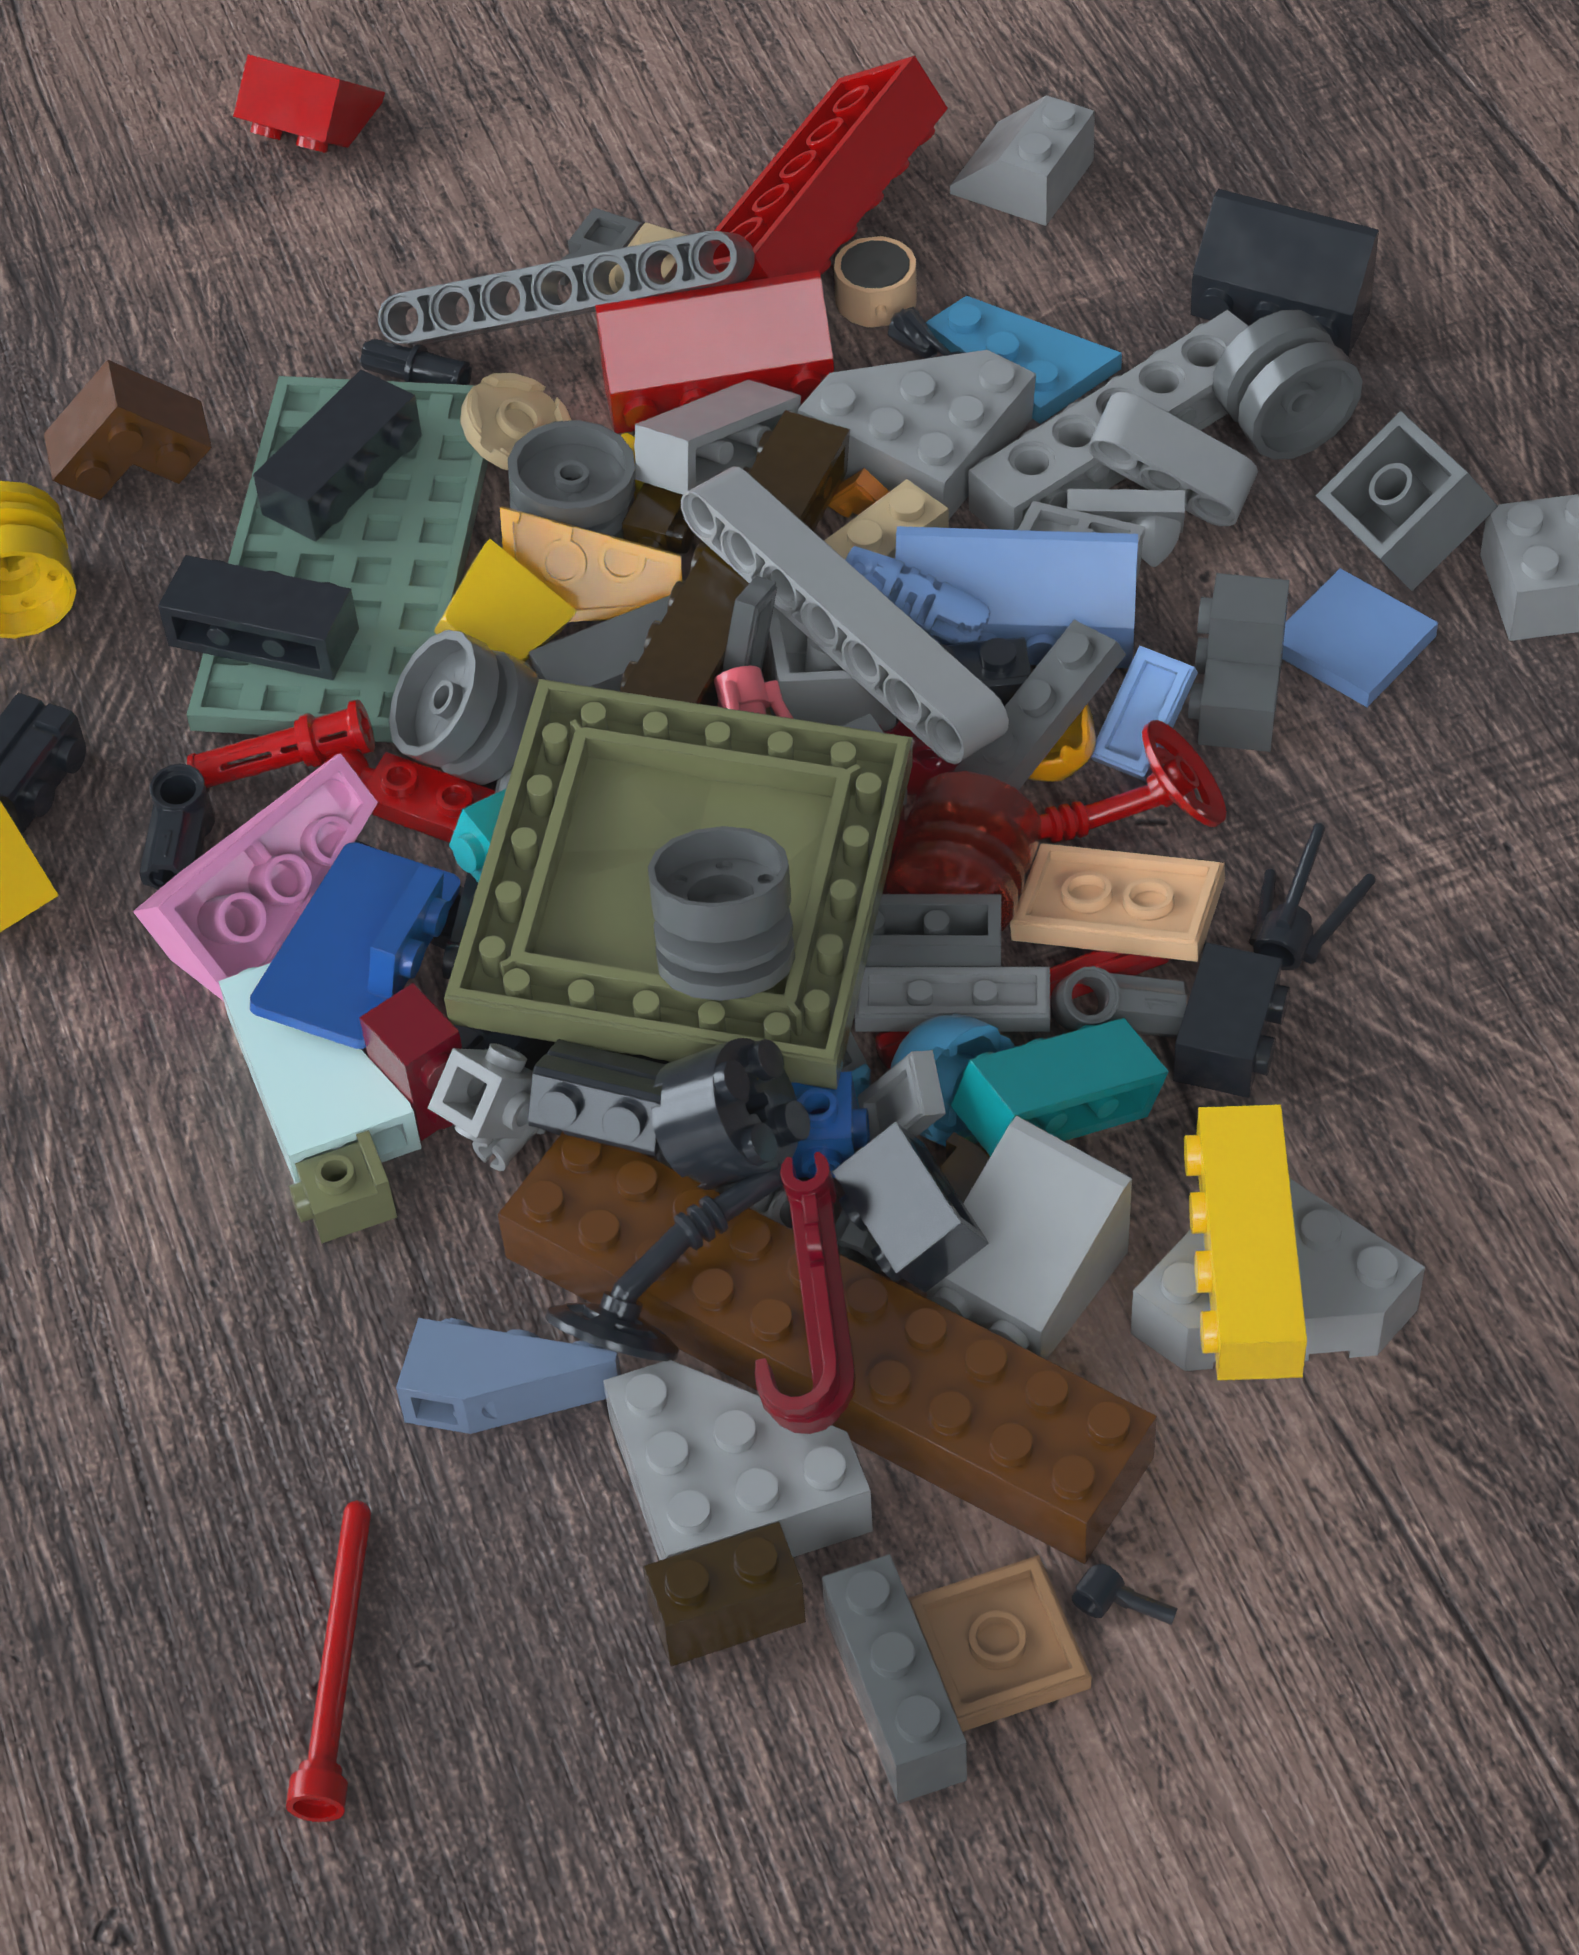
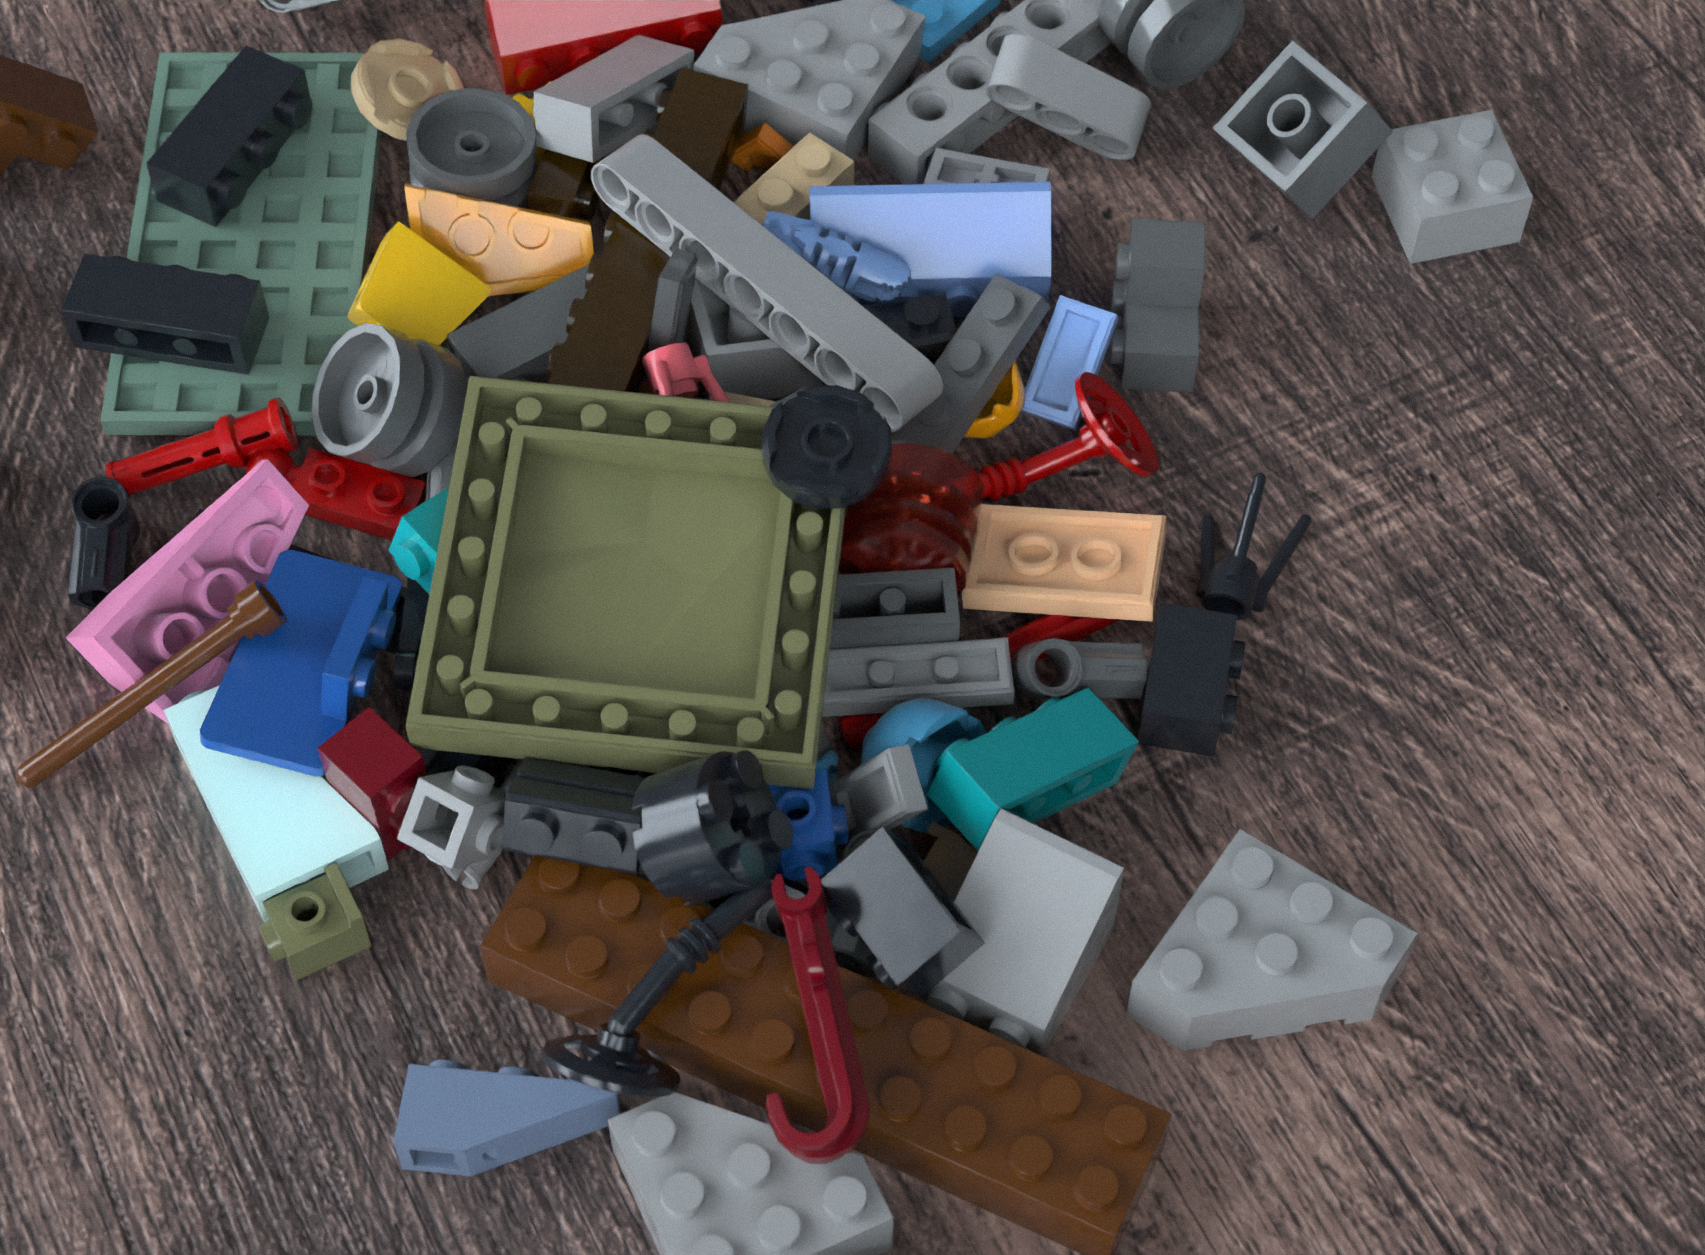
camera: 10 degrees left, 5 degrees up
(310, 895) = (252, 614): none -> reddish brown piece
(413, 364) = (296, 32): black axle -> none
(722, 913) = (686, 620): dark grey wheel -> none
(879, 764) = (827, 447): none -> black tile
(1157, 510) = (1057, 150): light grey tile -> none
(1248, 1241) = (1247, 928): yellow brick -> none
(1355, 637) = (1265, 269): medium blue tile -> none

